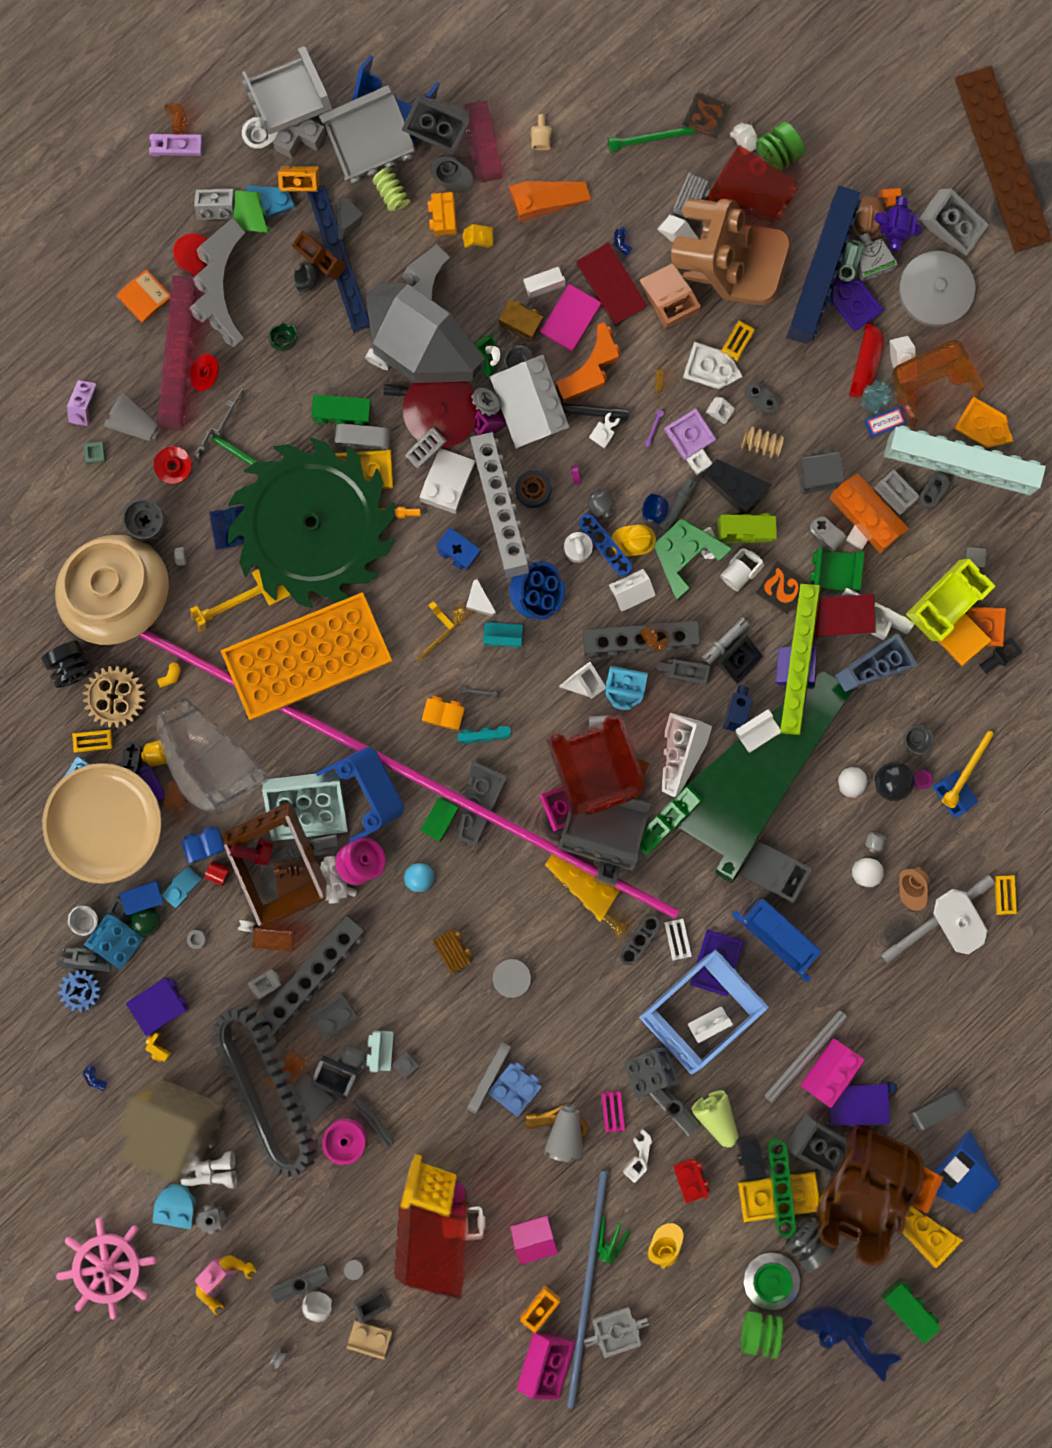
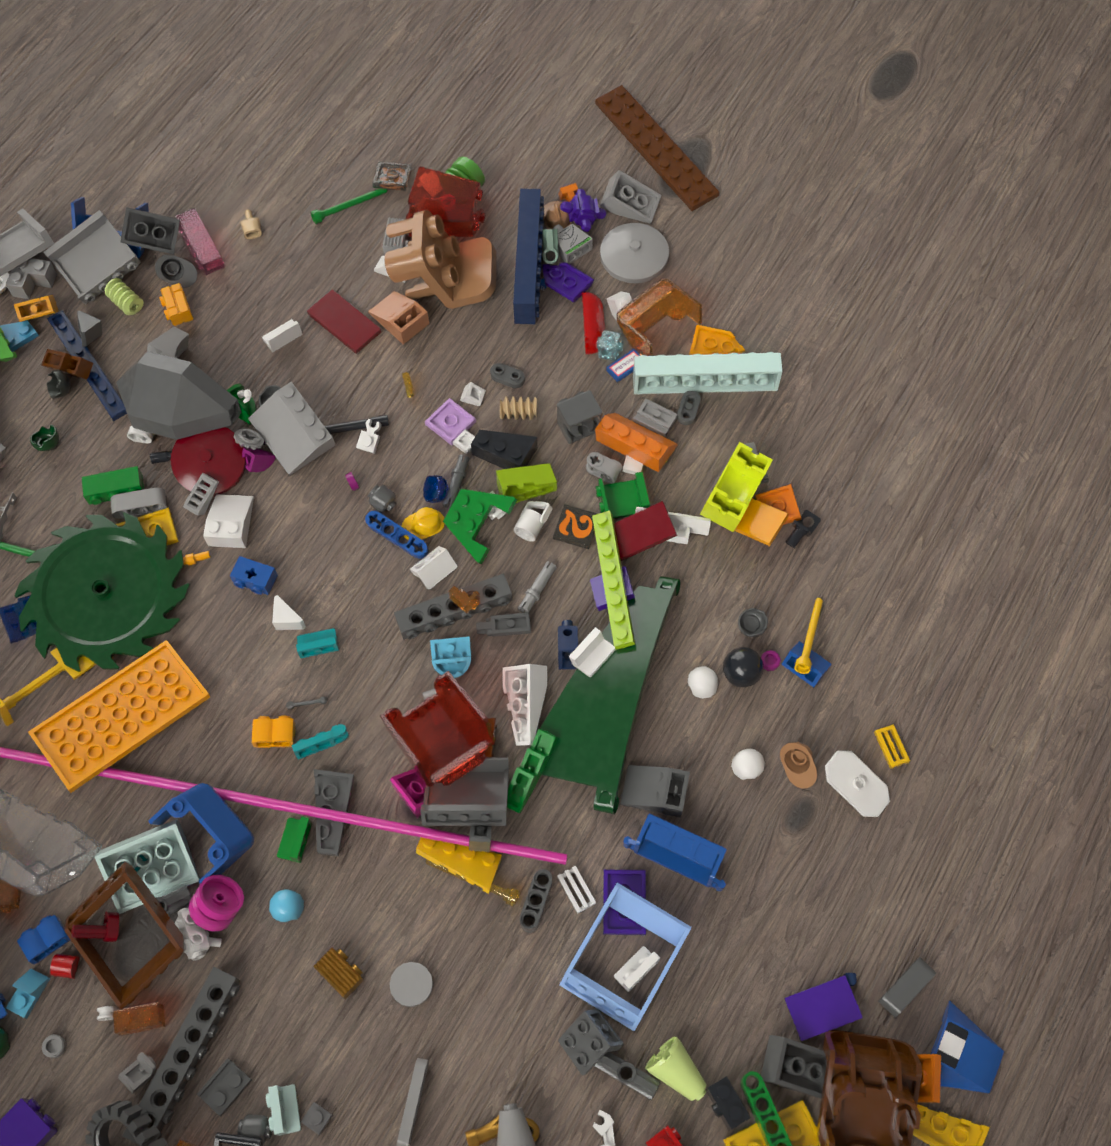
camera: 15 degrees left, 20 degrees down
(291, 876) = (146, 944): reddish brown hinge -> none
(446, 622) = (256, 660): yellow piece -> none
(458, 614) = (267, 634): clear yellow axle -> none
(478, 236) = (213, 313): yellow bracket -> none
(483, 445) = (283, 522): light grey brick -> none
(515, 1088) = (445, 1107): medium blue plate -> none
(521, 320) = (267, 368): pearl gold brick -> none
(528, 479) = (311, 496): wheel -> none
(538, 592) = (338, 587): blue cylinder -> none
(544, 197) = (264, 272): orange wedge -> none
(570, 317) = (313, 357): dark pink tile -> none
(578, 547) = (369, 541): white piece -> none
(585, 682) = (408, 661): white slope -> none
(589, 376) = (344, 395): orange arch -> none
(615, 1128) = (554, 1082): dark pink tile -> none
(619, 241) = (342, 287): clear blue arm -> none
(659, 414) = (417, 412): medium lavender hinge -> none
(711, 367) = (453, 362): white tile -> none
(731, 352) = (462, 342): yellow tile -> none
(740, 659) = (555, 598): black slope -> none
(805, 1056) = (749, 974): light grey axle -> none
(832, 1073) = (784, 981): dark pink slope -> none
(875, 842) = (745, 732): light grey piece -> none
(881, 662) = (689, 562): sand blue wedge -> none
(895, 950) = (804, 832): light grey piece -> none

